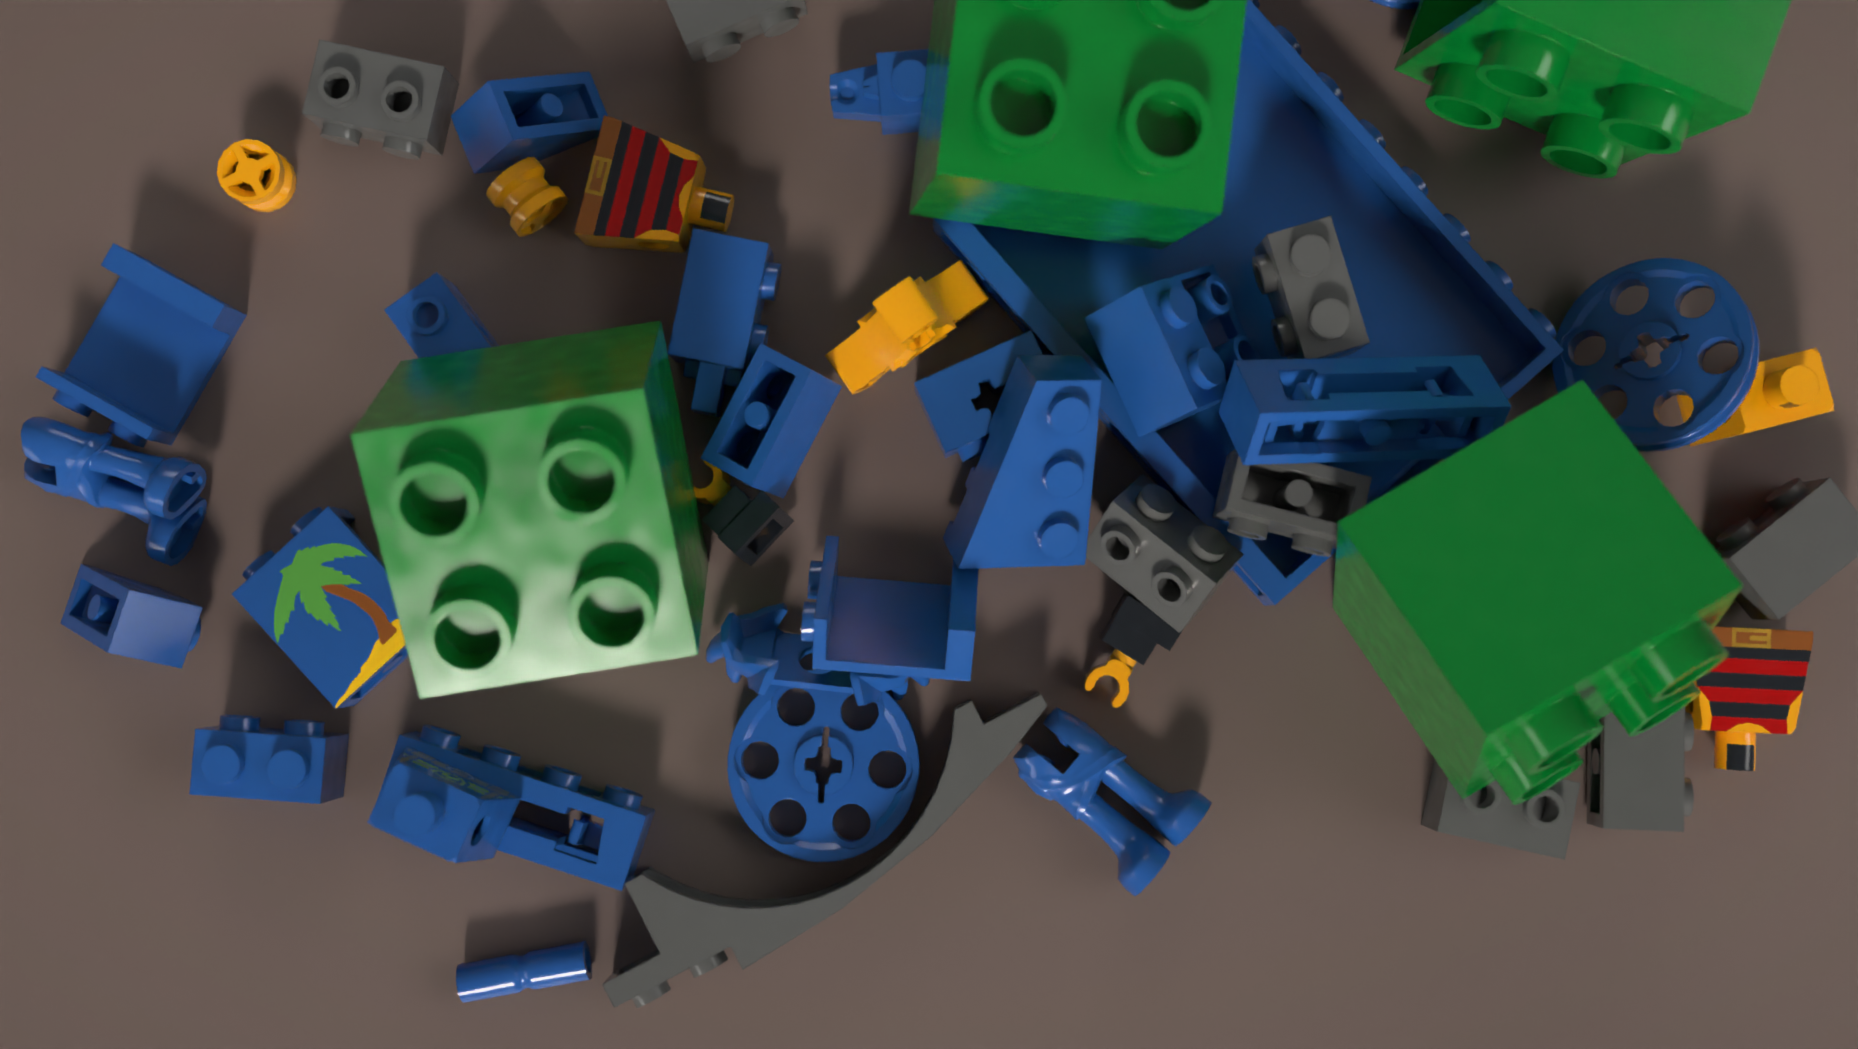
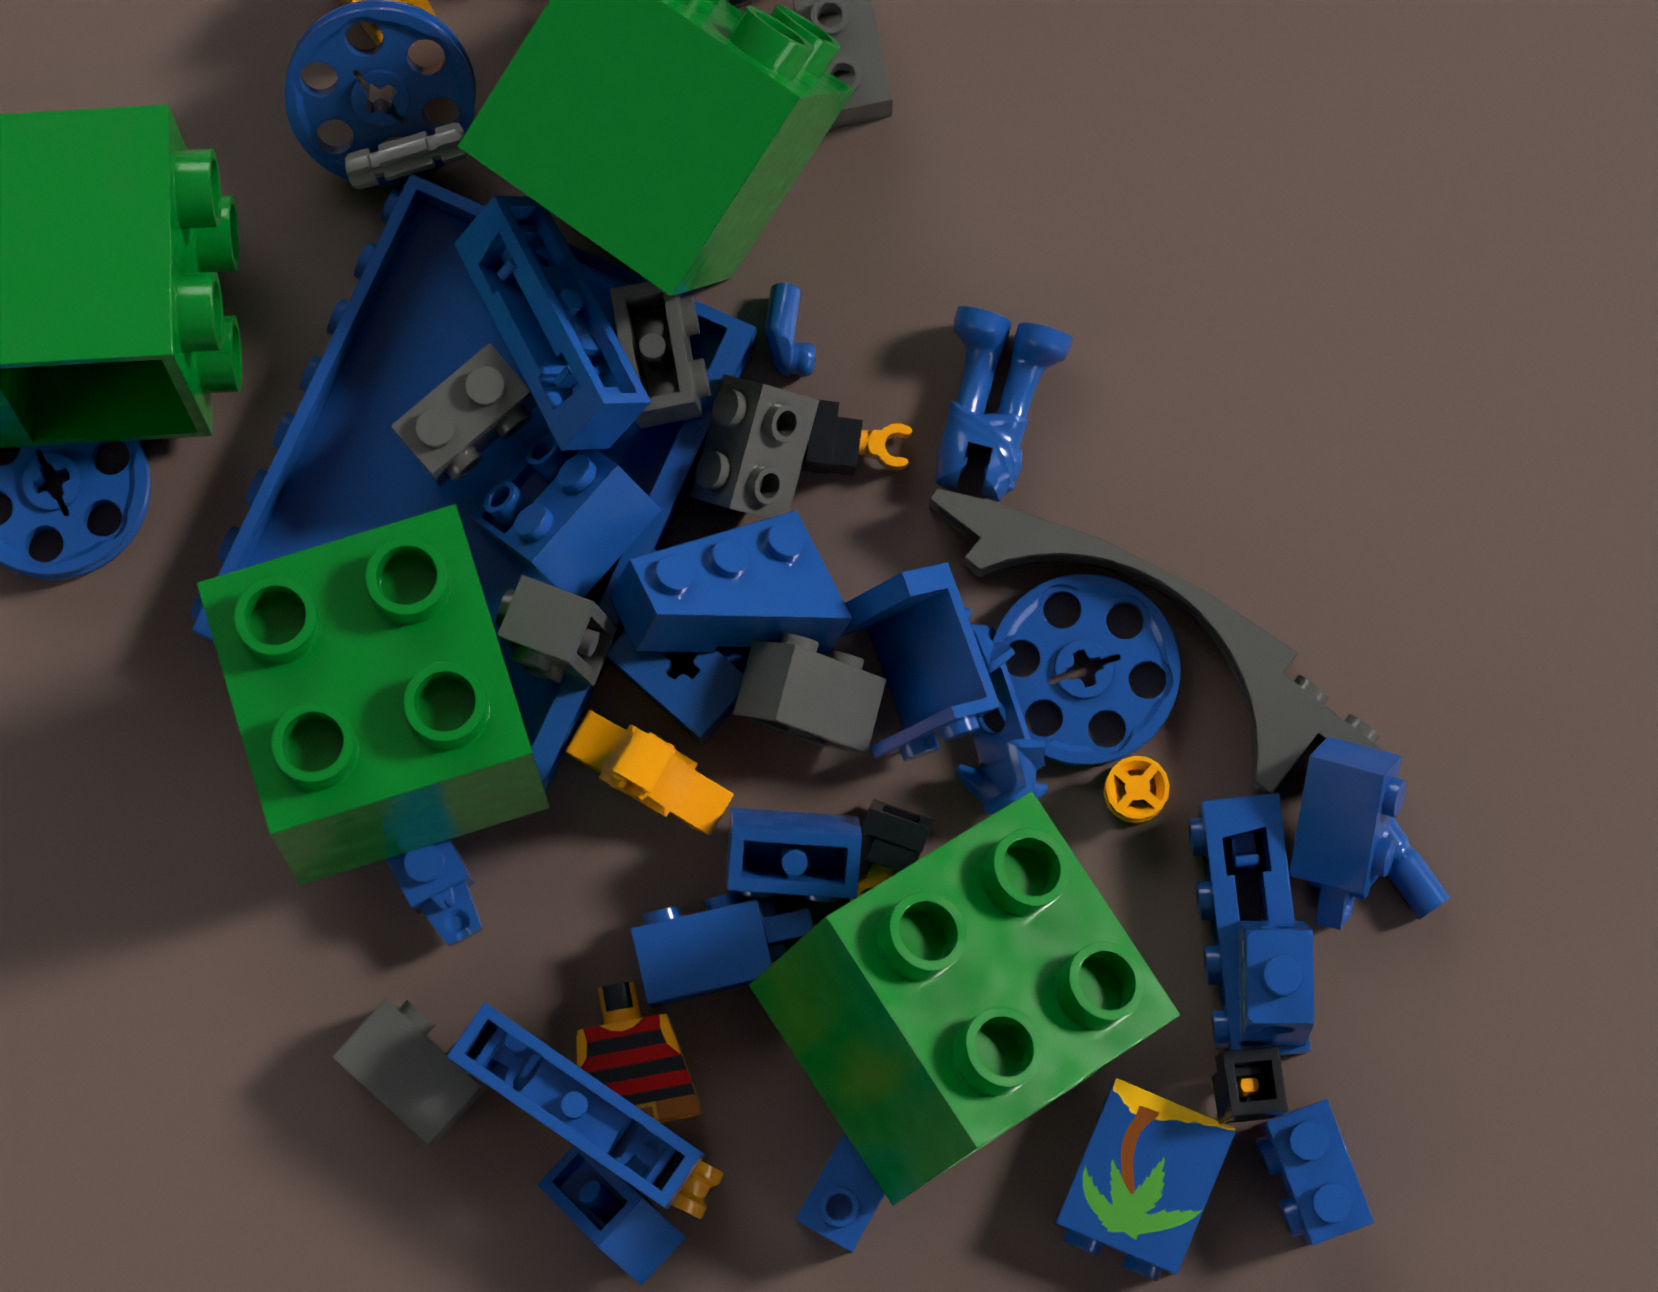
camera: 110 degrees left, 5 degrees down
(362, 737) = (1249, 1085): none -> black piece
(566, 939) = (1346, 824): none -> blue hinge
(619, 113) = (576, 1105): none -> blue brick
(681, 766) = (1136, 774): none -> light orange wheel
(907, 498) = (810, 694): none -> dark grey brick
(1065, 281) = (554, 632): none -> dark grey brick
(1262, 628) = (781, 329): none -> blue arm
(1583, 340) = (405, 156): none -> light grey axle

